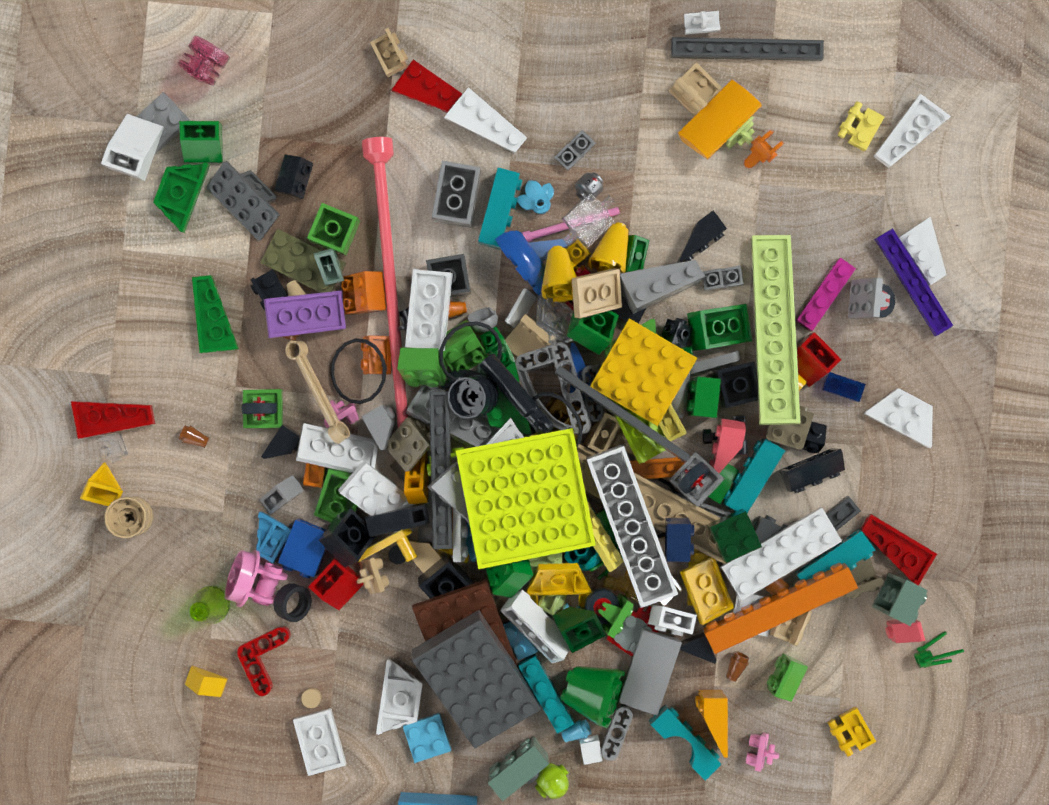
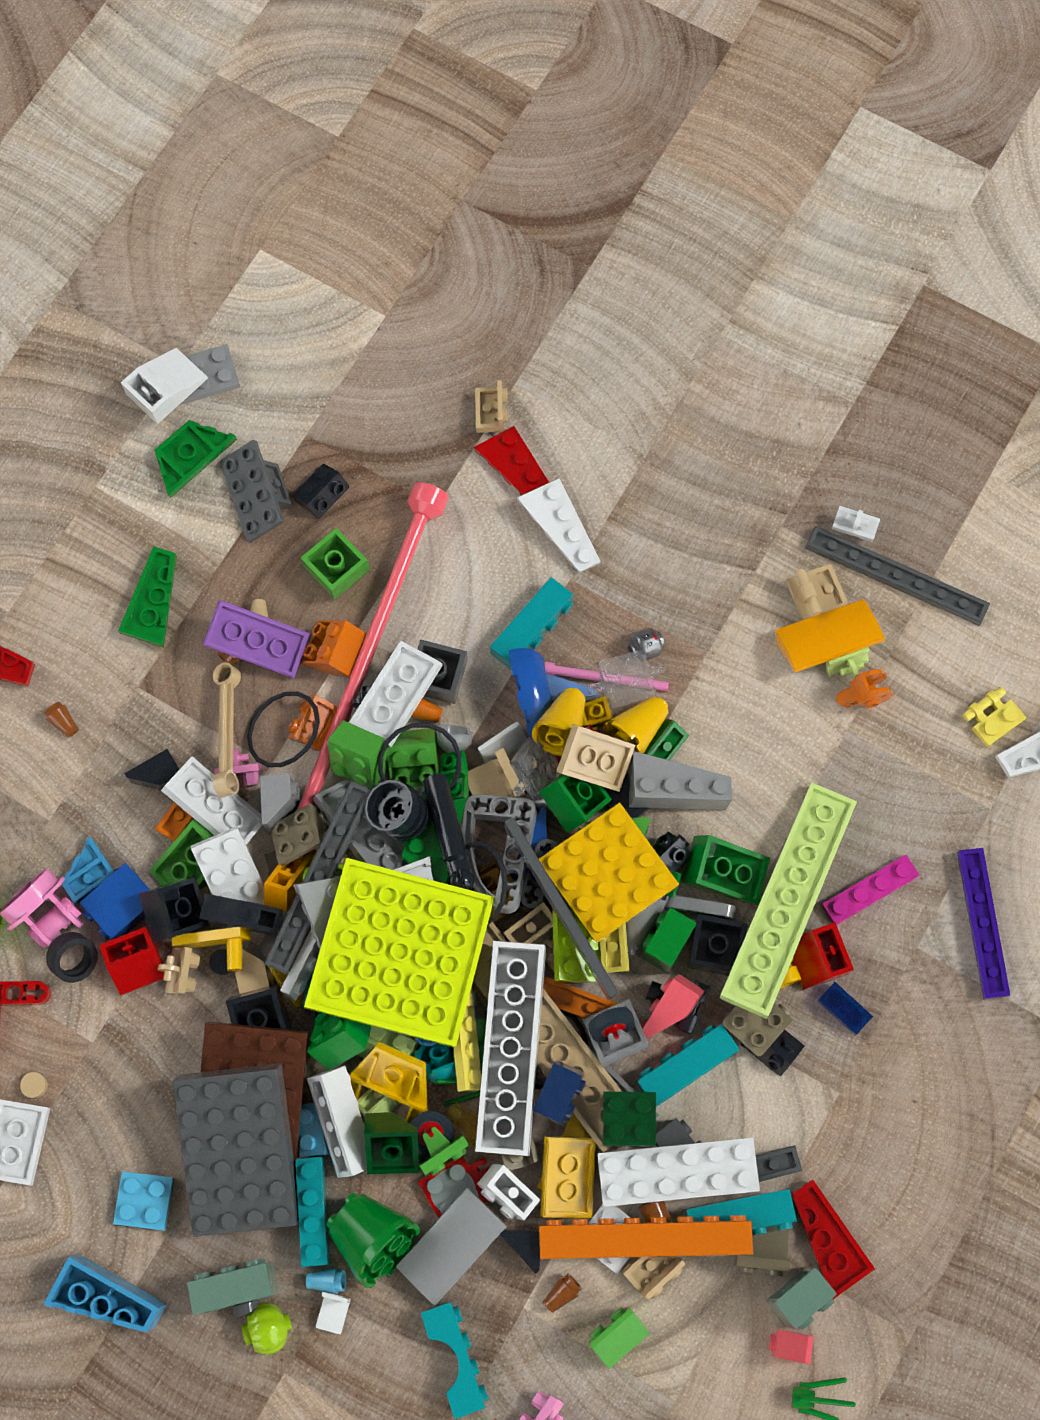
camera: 30 degrees right, 15 degrees down
(201, 141) = (240, 410): green slope -> none
(203, 60) = (285, 330): clear pink wheel -> none
(262, 408) = (154, 723): bright green plate -> none
(268, 286) = (231, 591): black bracket -> none
(281, 494) = (125, 828): light grey slope -> none
(296, 261) = (283, 585): olive plate -> none
(329, 266) = (309, 598): sand green slope -> none
(399, 698) = (135, 1134): white wing -> none
(456, 194) = (490, 586): light grey brick -> none
(535, 194) = (580, 628): medium azure plate -> none
(575, 150) = (649, 600): light grey slope -> none
(626, 721) = (364, 1305): light grey beam -> none
(704, 231) = (755, 754): black slope -> none
(714, 710) = (504, 1336): light orange slope -> none
(723, 278) = (755, 816): light grey slope -> none
(729, 474) = (641, 1060): green slope -> none
(813, 470) = (763, 1090): black slope -> none
(870, 299) = (922, 918): light grey plate -> none
(905, 415) = (907, 1079): white wing -> none
(925, 251) = (1011, 893): white wing -> none

